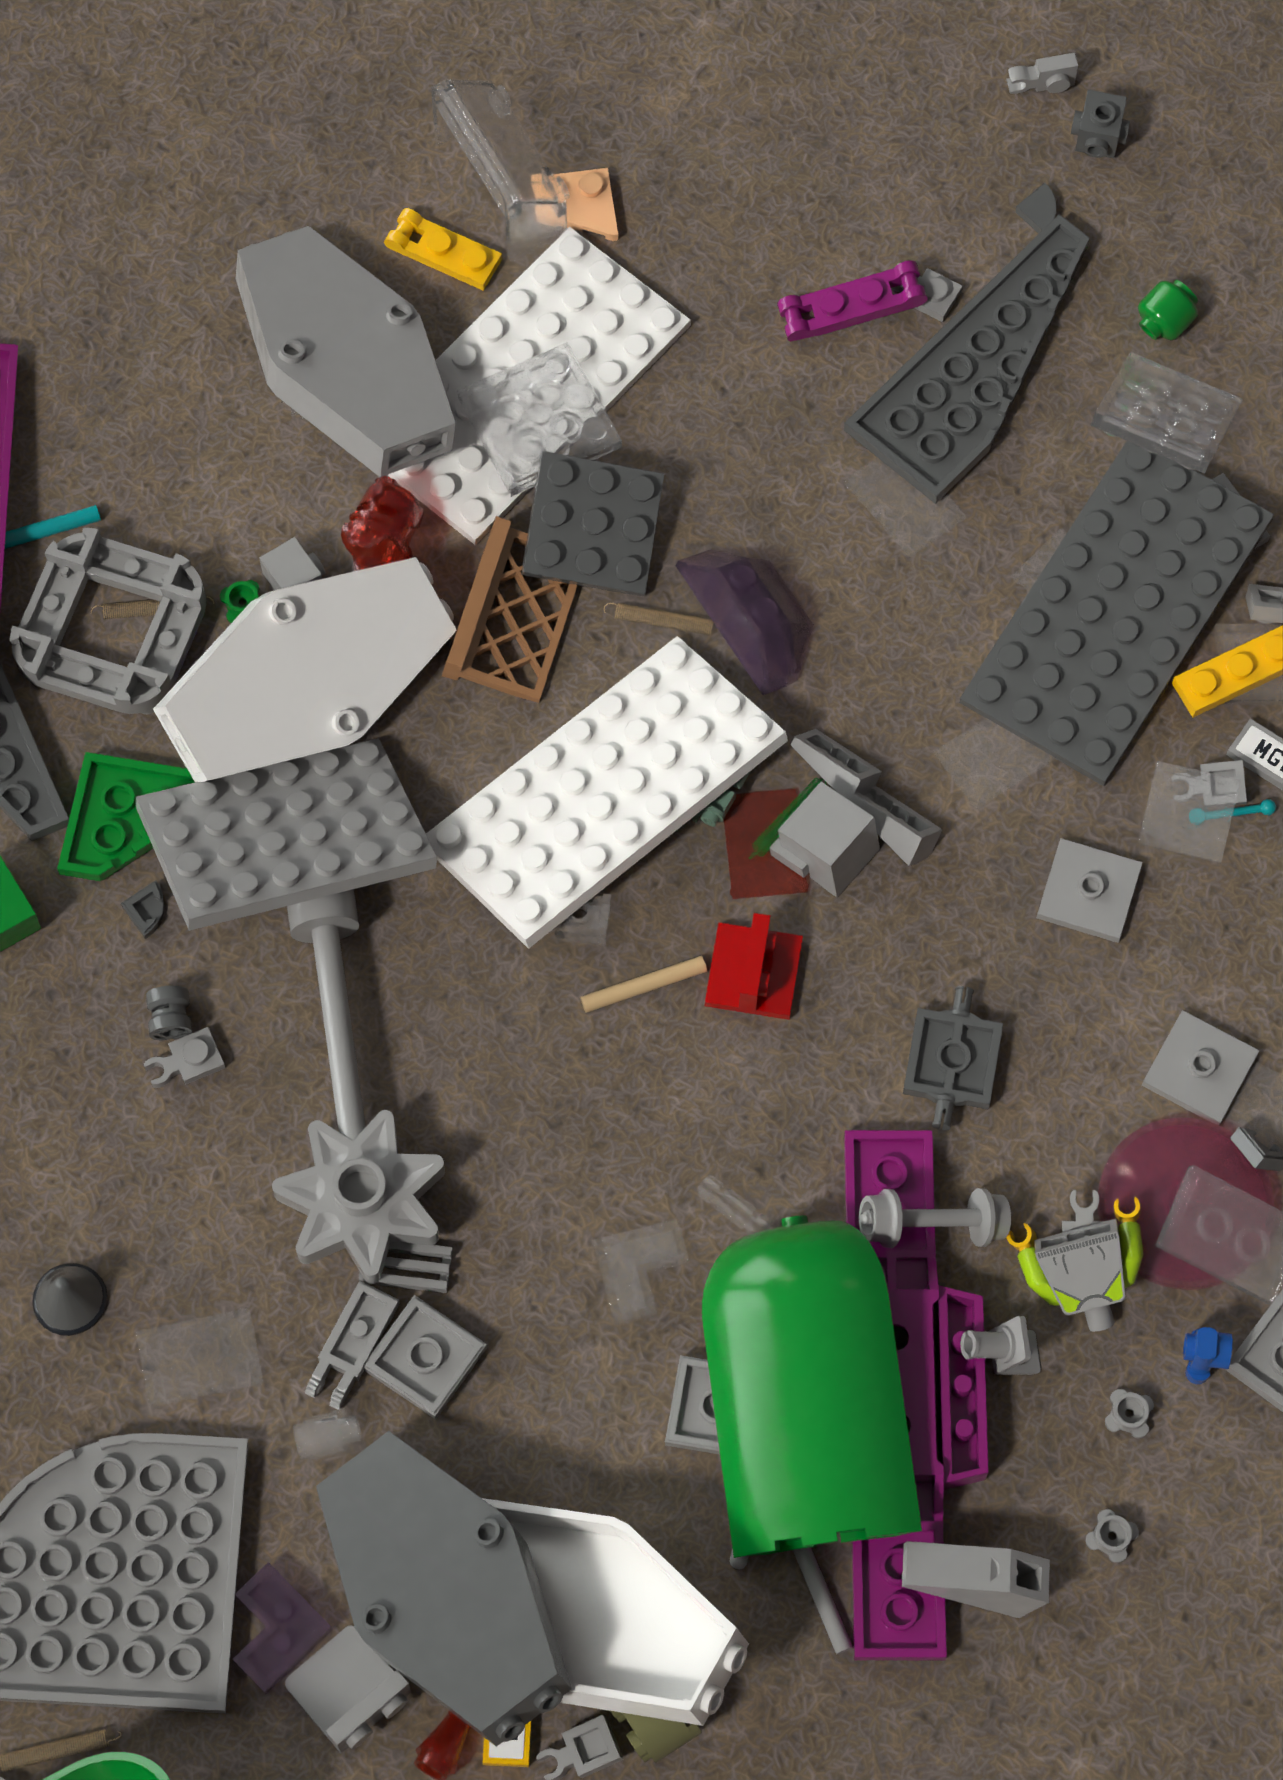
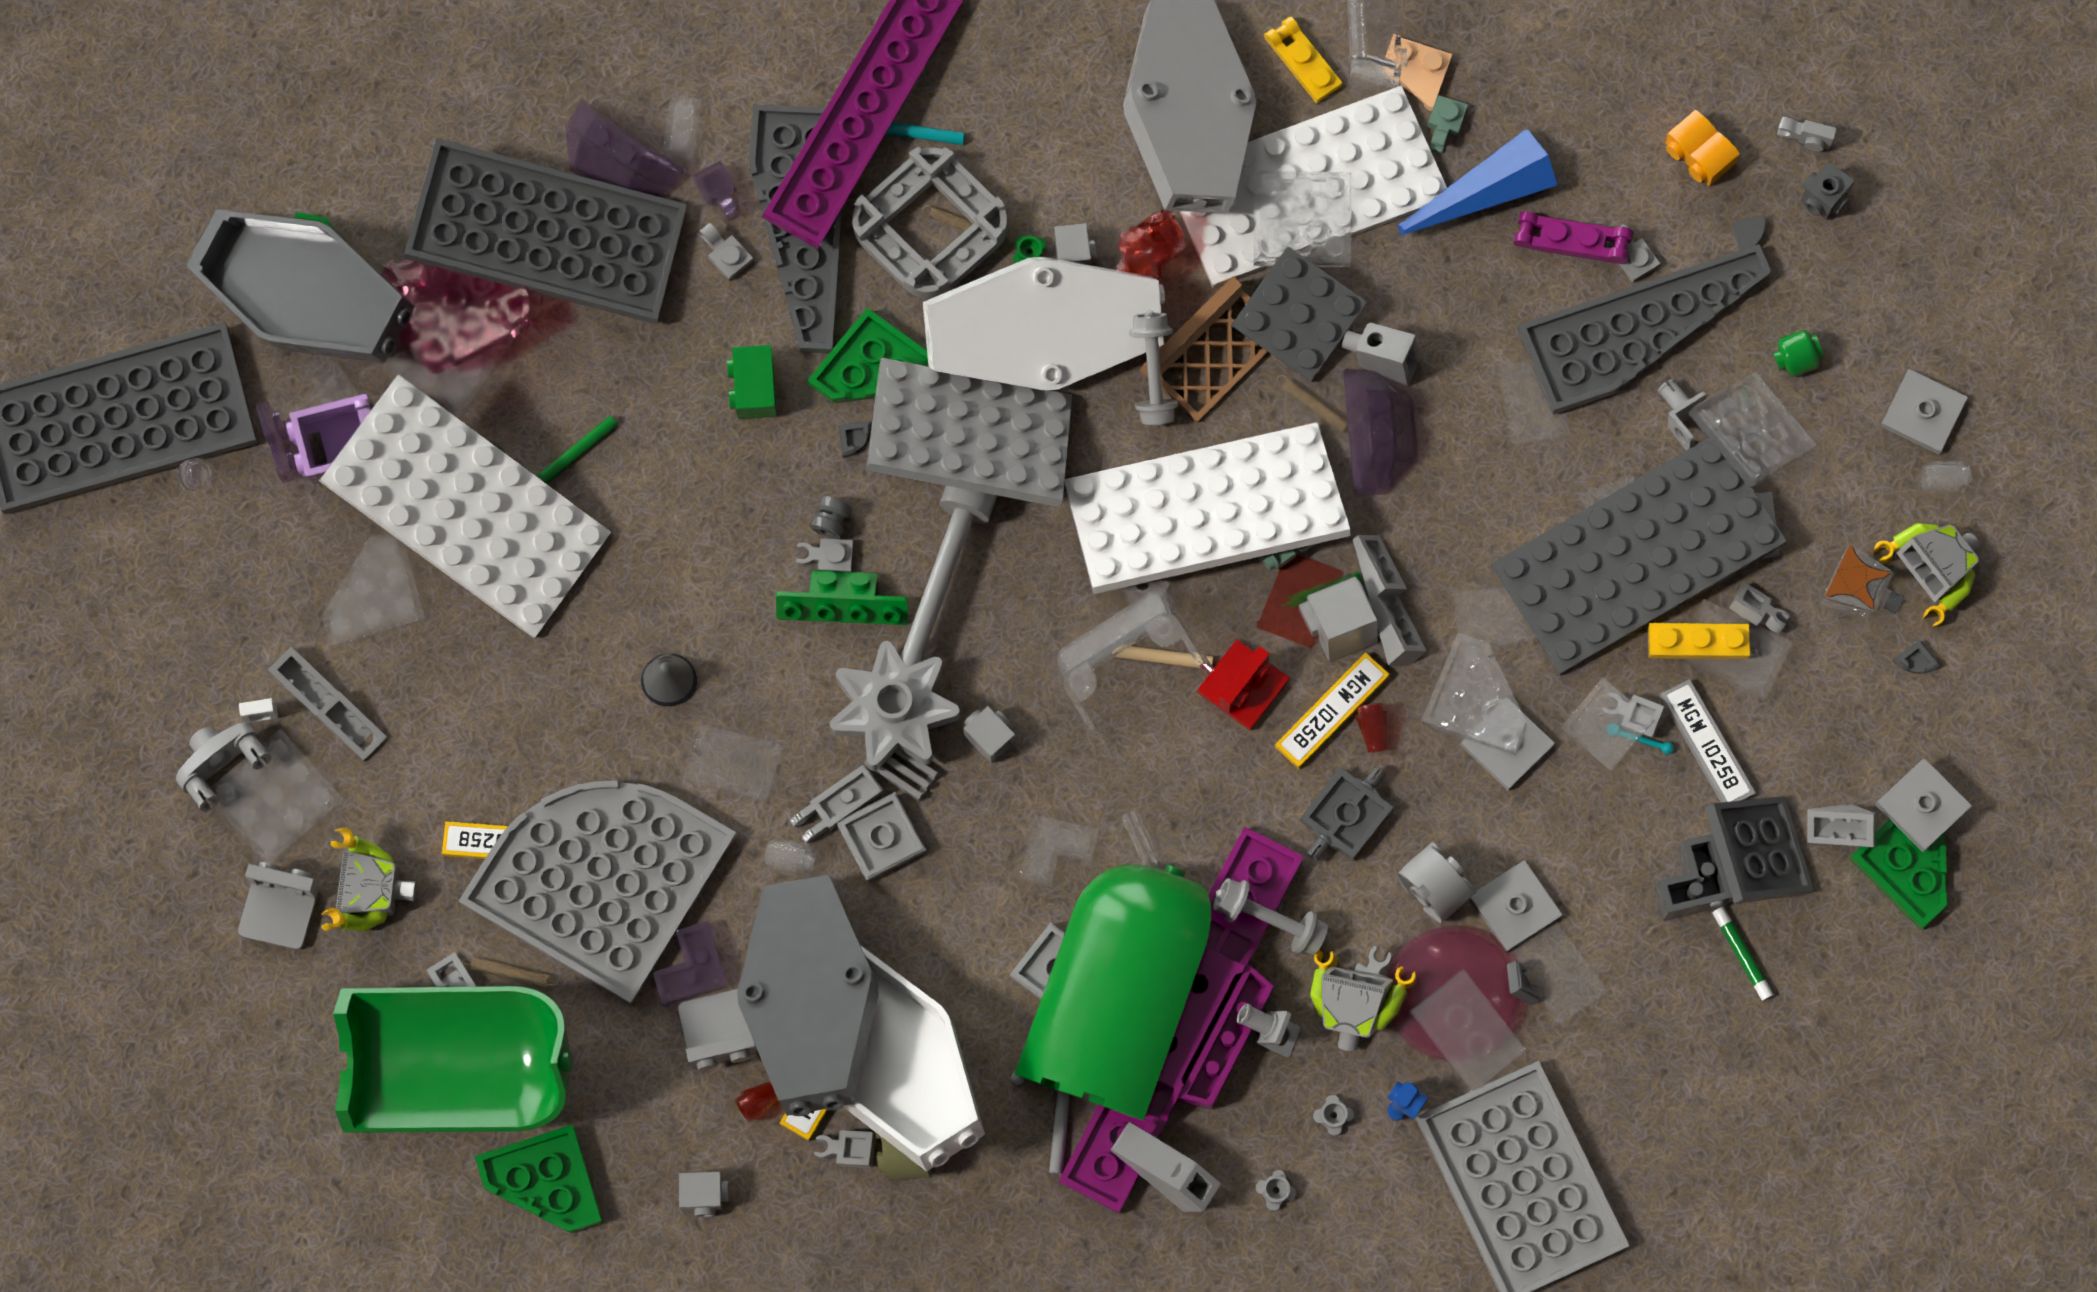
camera: 30 degrees right, 5 degrees up
(232, 1101) = (843, 599): none -> green bracket
(487, 708) = (1156, 410): none -> light grey piece
(489, 1170) = (989, 733): none -> light grey brick
(552, 1026) = (1150, 615): none -> clear windscreen
(639, 240) = (1445, 119): none -> sand green plate
(712, 519) = (1393, 355): none -> light grey torso
(741, 267) = (1507, 174): none -> wedge
(870, 950) = (1332, 710): none -> tile
(928, 944) = (1373, 726): none -> clear red cone
(939, 142) = (1701, 148): none -> light orange brick
(1029, 855) = (1475, 698): none -> clear plate
(1076, 429) = (1681, 406): none -> light grey bracket
(1101, 1083) = (1436, 882): none -> light grey brick

